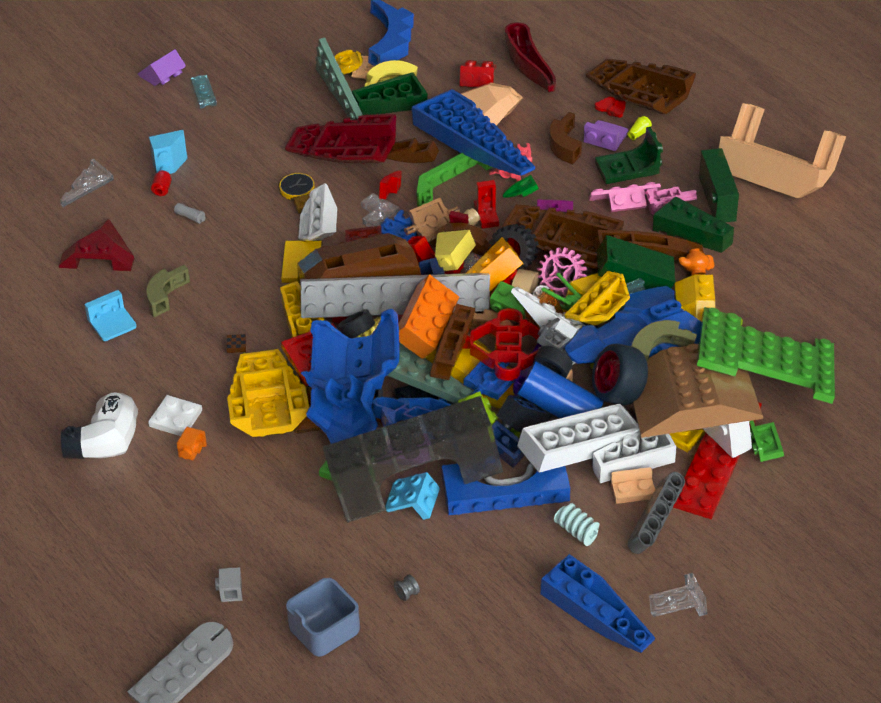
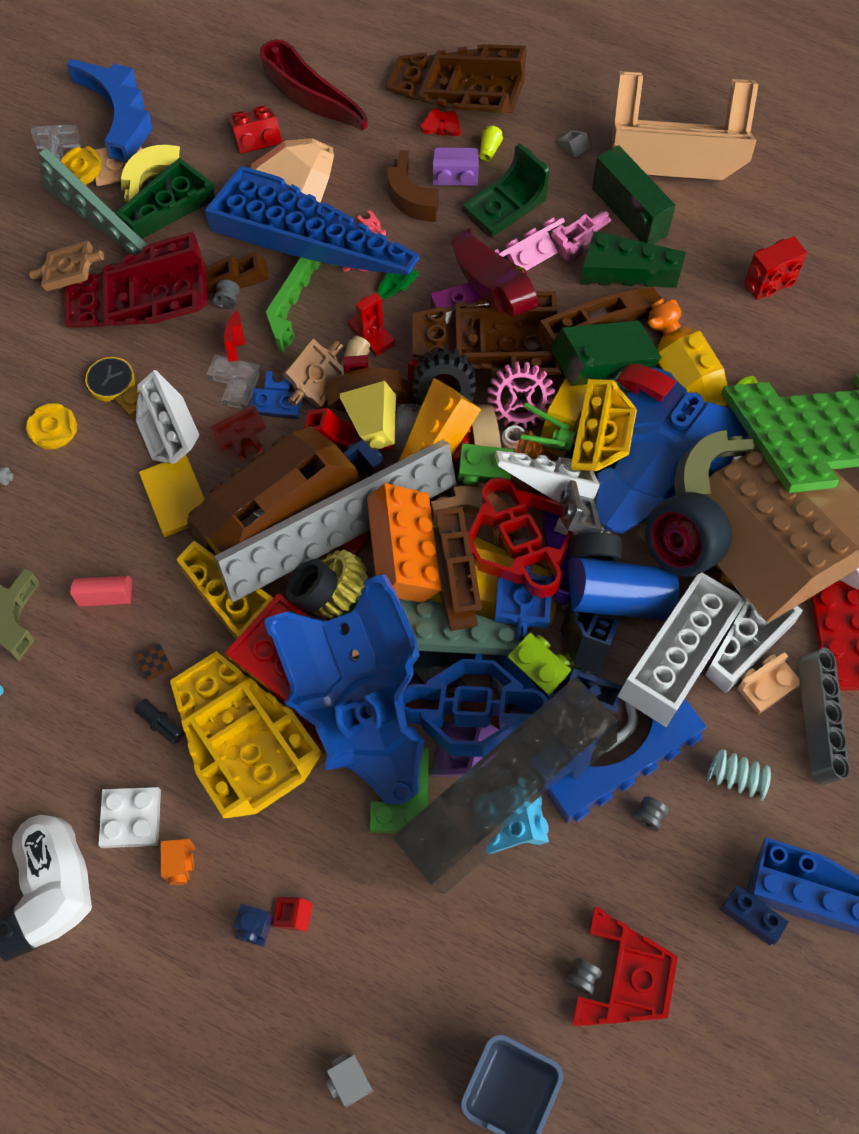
camera: 25 degrees left, 20 degrees up
(218, 489) = (252, 925): none -> dark blue brick
(221, 373) = (159, 721): none -> black axle
(225, 295) = (102, 590): none -> coral brick
(244, 200) = (51, 426): none -> yellow tile
(246, 497) = (292, 914): none -> red slope
(304, 114) = (66, 266): none -> medium nougat plate
(340, 41) = (56, 138): none -> clear bracket
(400, 161) = (226, 294): none -> dark grey wheel
(440, 605) = (640, 978): none -> red wing
(505, 524) = (651, 813): none -> dark grey wheel
(536, 594) = (754, 915): none -> dark blue bracket
(582, 196) = (493, 276): none -> dark red animal
(650, 286) = (646, 379): none -> red slope
(702, 144) = (574, 143): none -> light grey slope
(794, 257) = (775, 267): none -> red brick

